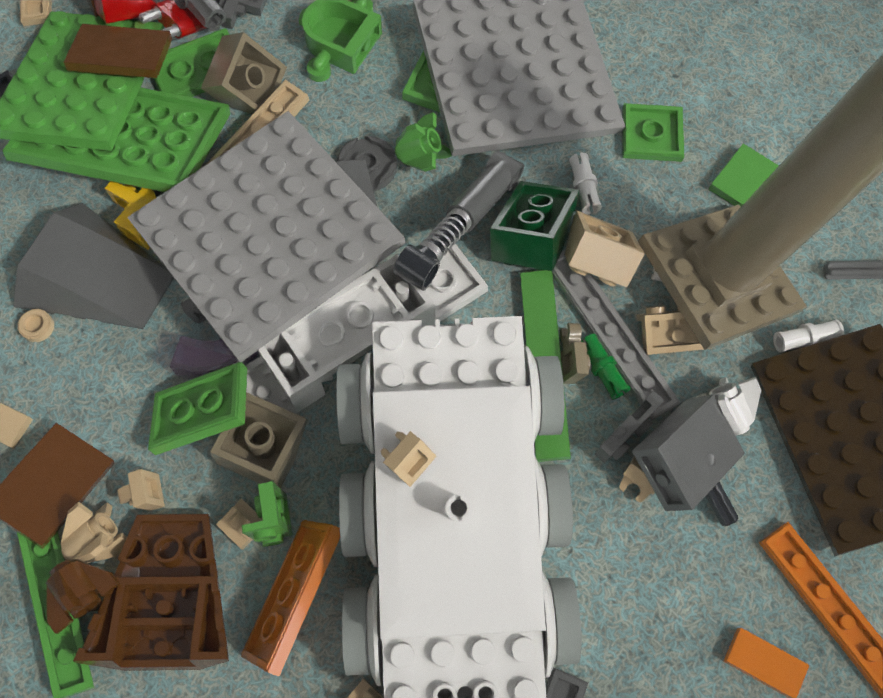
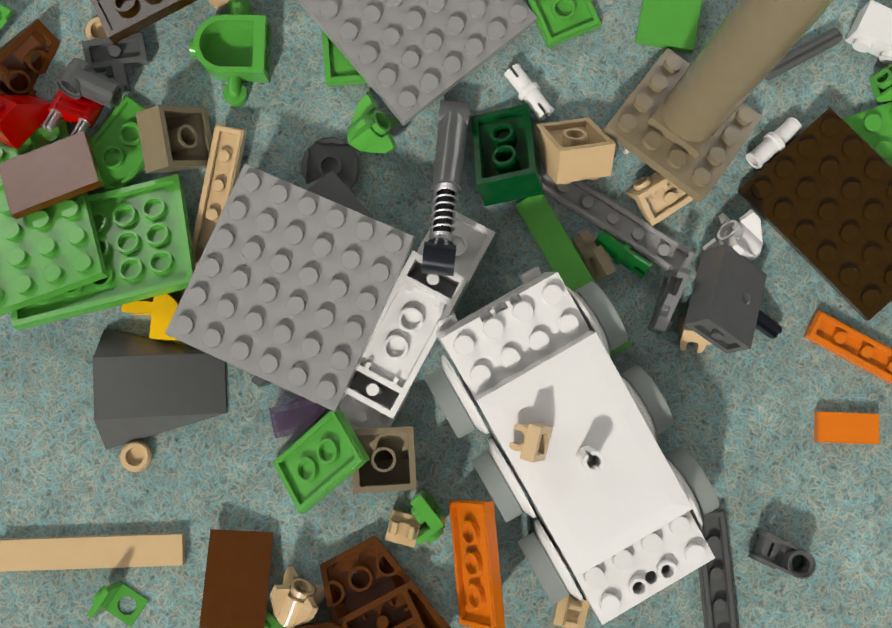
camera: 25 degrees left, 15 degrees up
(142, 491) = (313, 544): tan tile -> none

